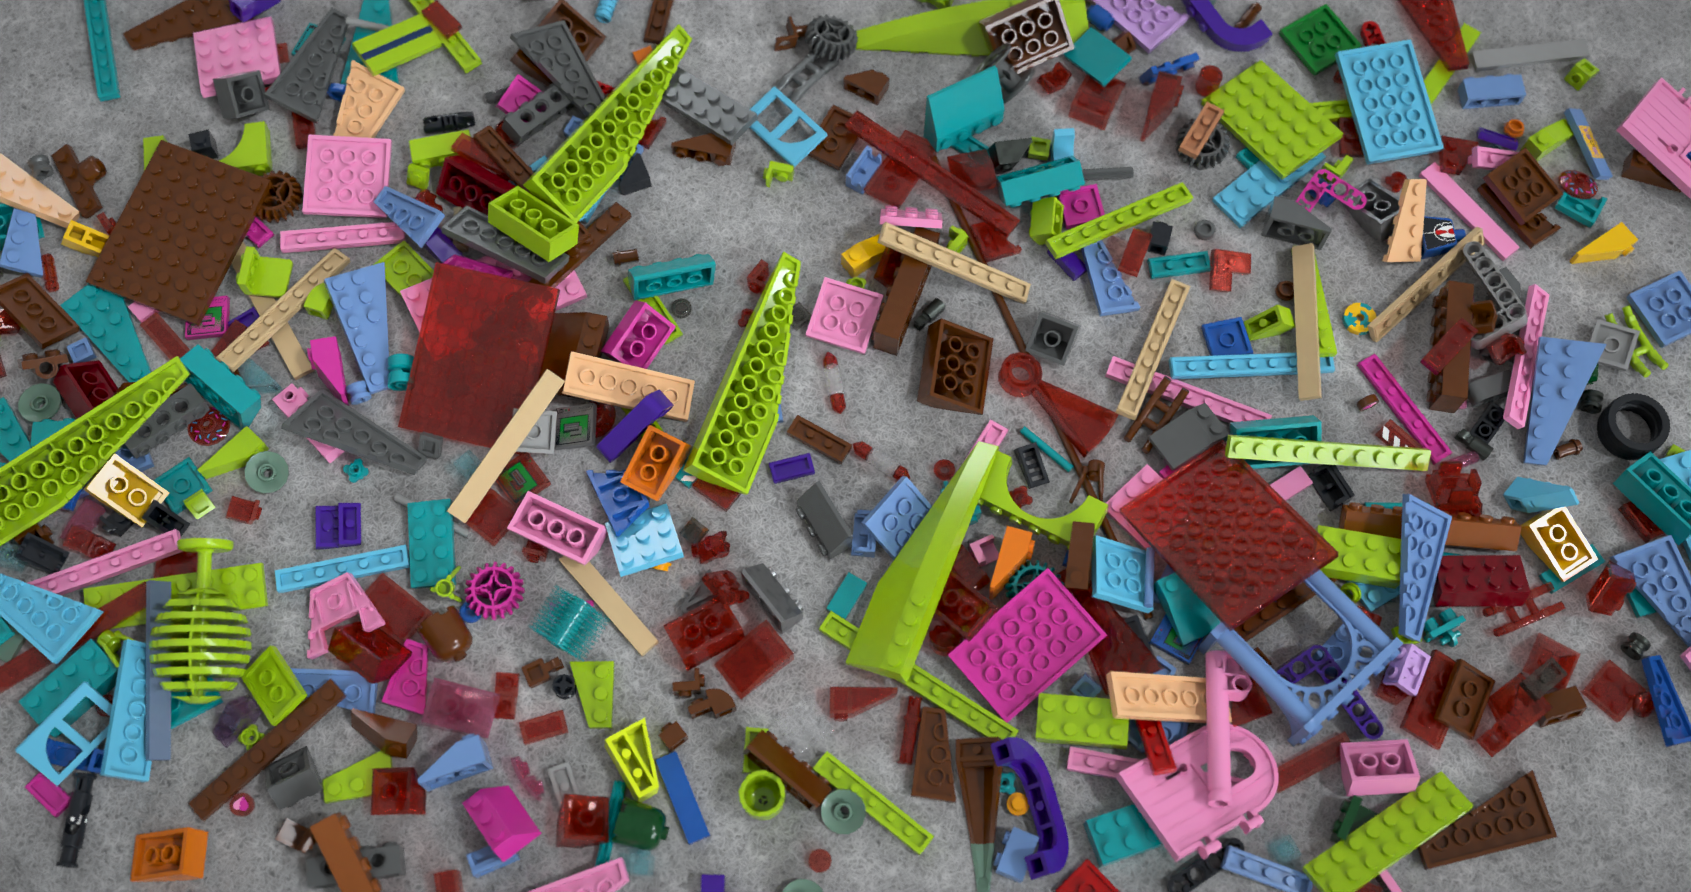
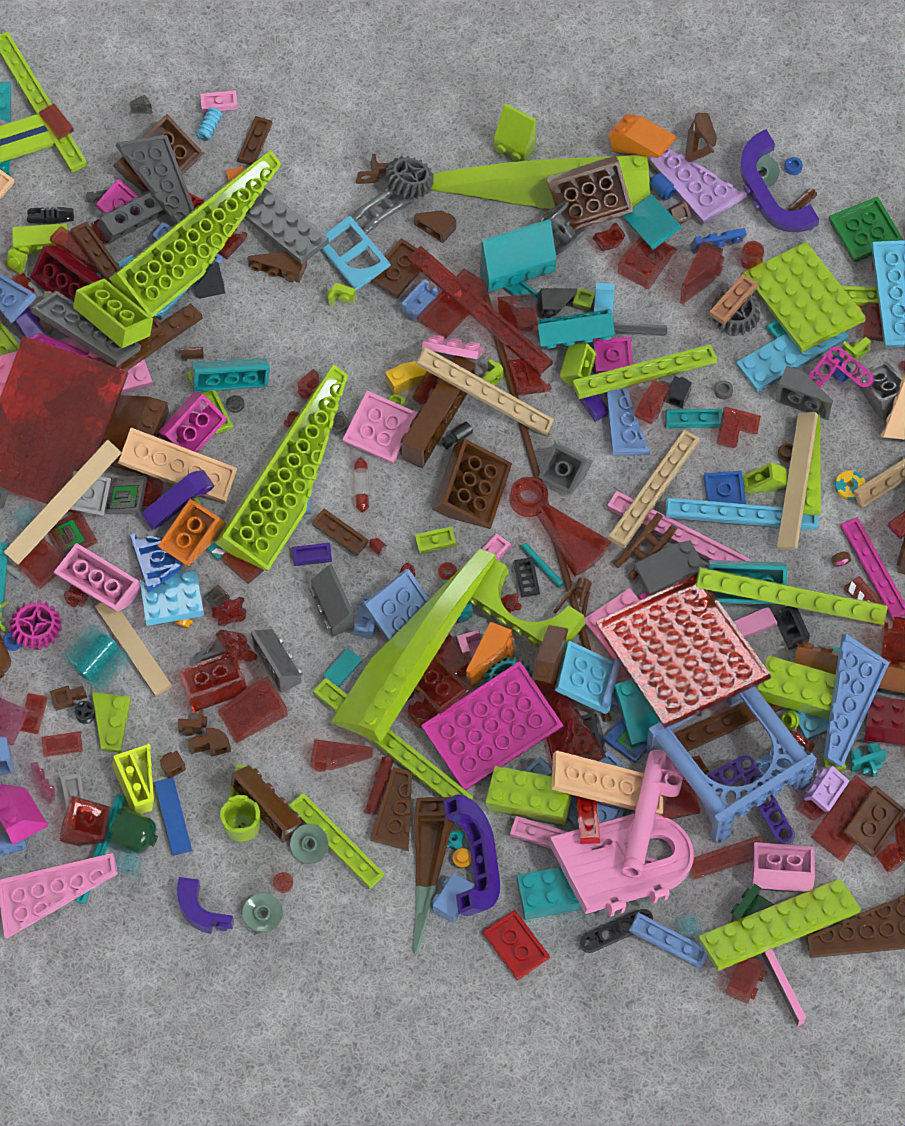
camera: 10 degrees right, 5 degrees down
(925, 435) = (435, 540): none -> lime plate

